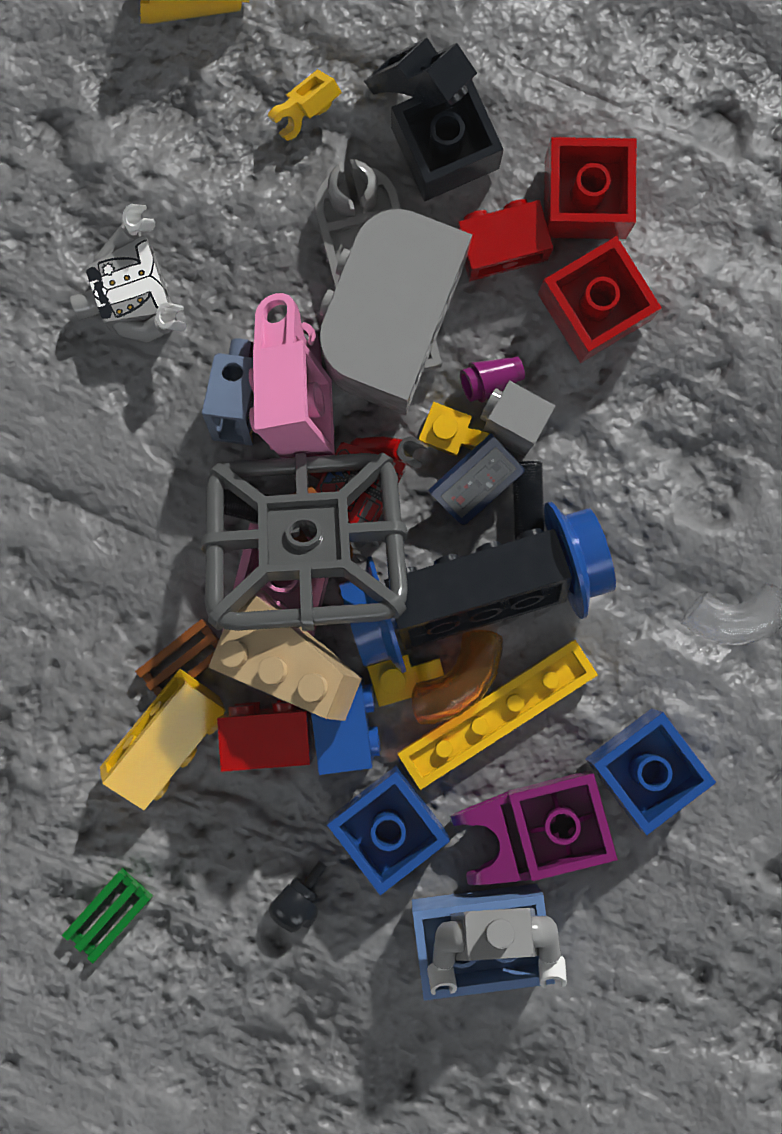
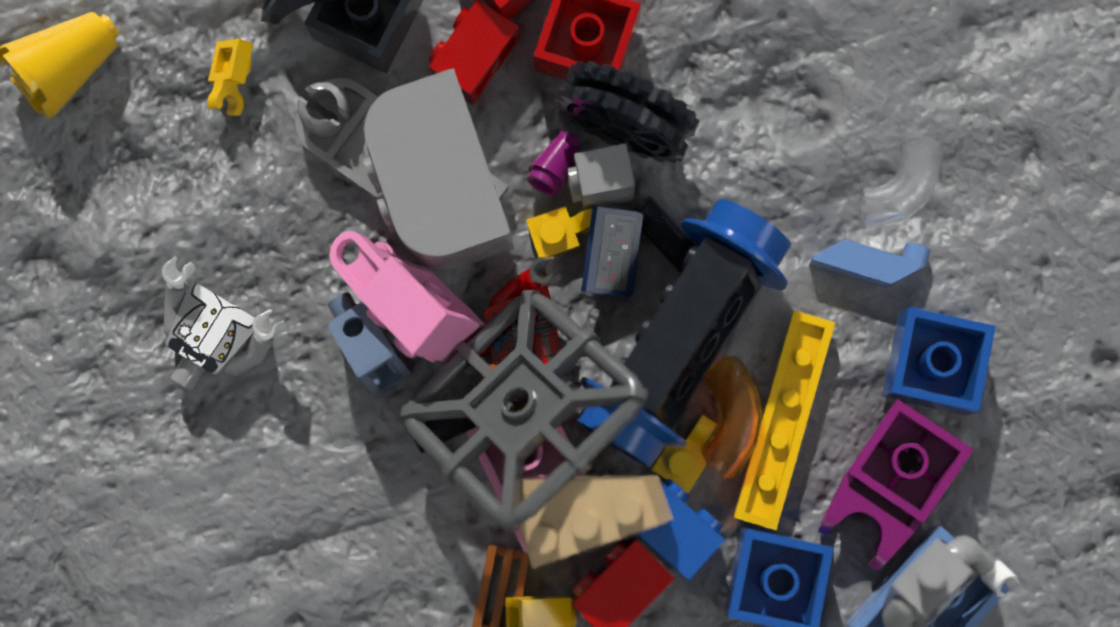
camera: 35 degrees left, 5 degrees down
(578, 382) = (627, 111): none -> black piece
(664, 654) = (871, 263): none -> medium blue piece

